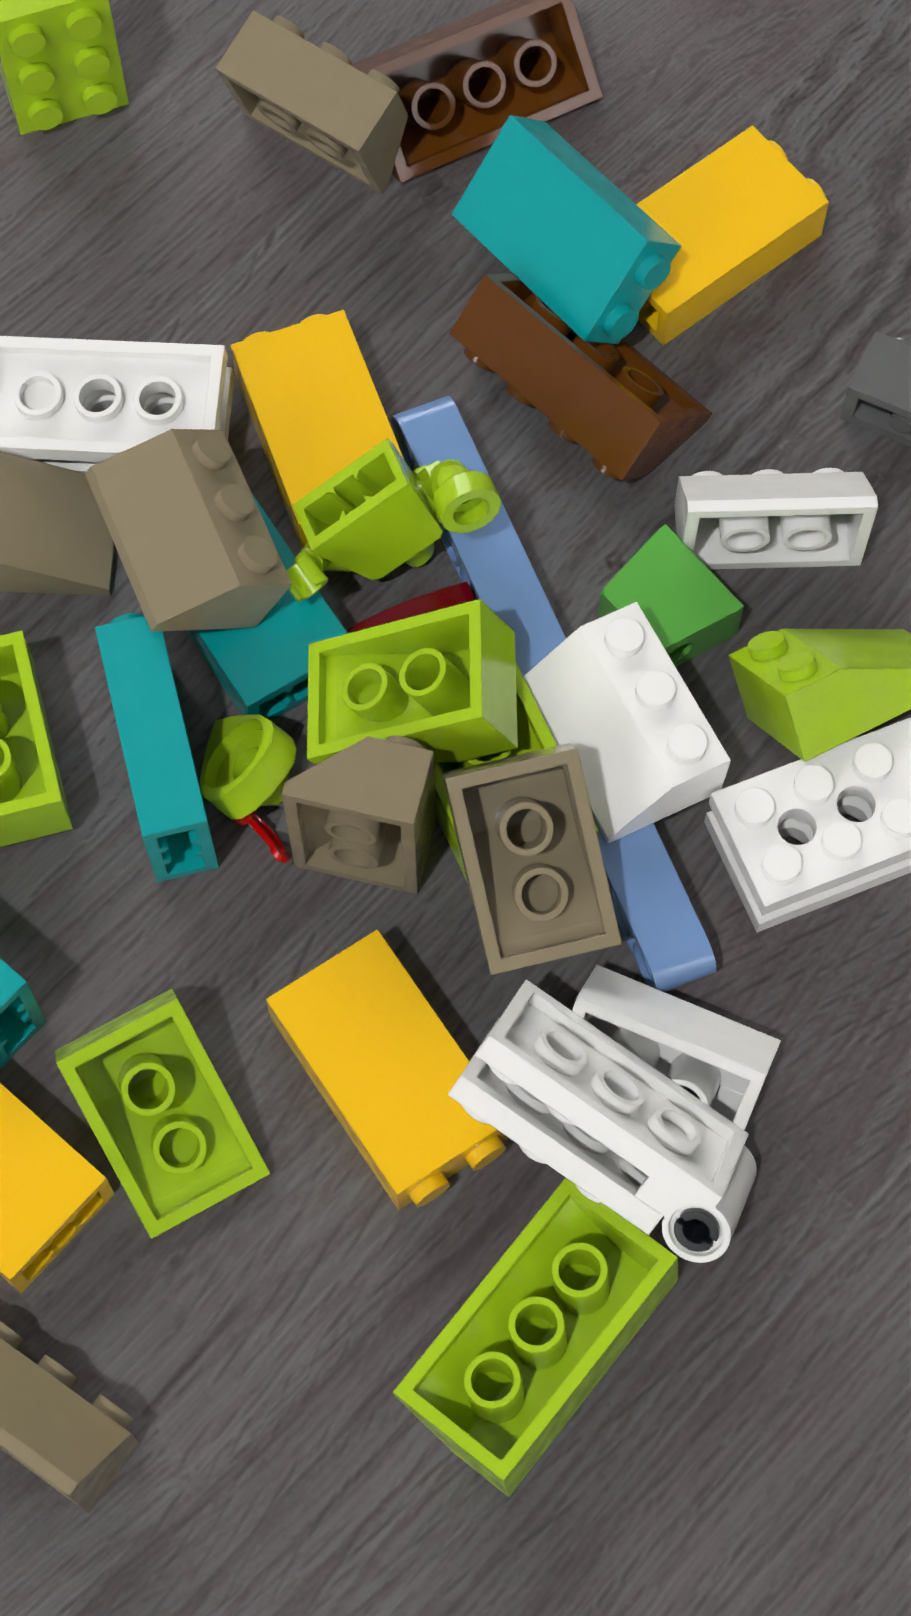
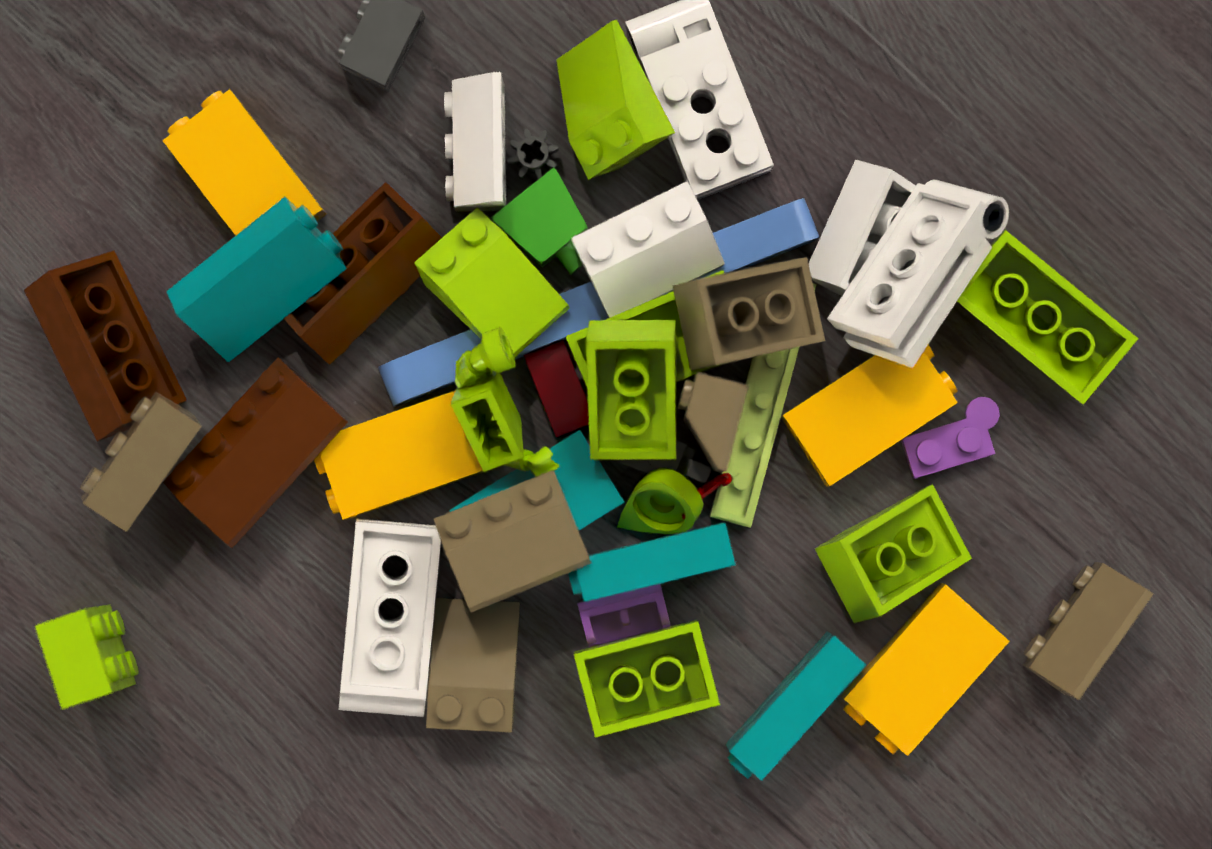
camera: 85 degrees left, 20 degrees up
(82, 723) = (624, 615): none -> medium lavender hinge
(329, 238) = (255, 452): none -> reddish brown slope
(337, 1209) = (953, 442): none -> medium lavender hinge
(355, 905) = (755, 436): none -> yellowish green tile
(568, 522) = (490, 282): none -> lime slope
(778, 586) = (529, 143): none -> dark grey gear

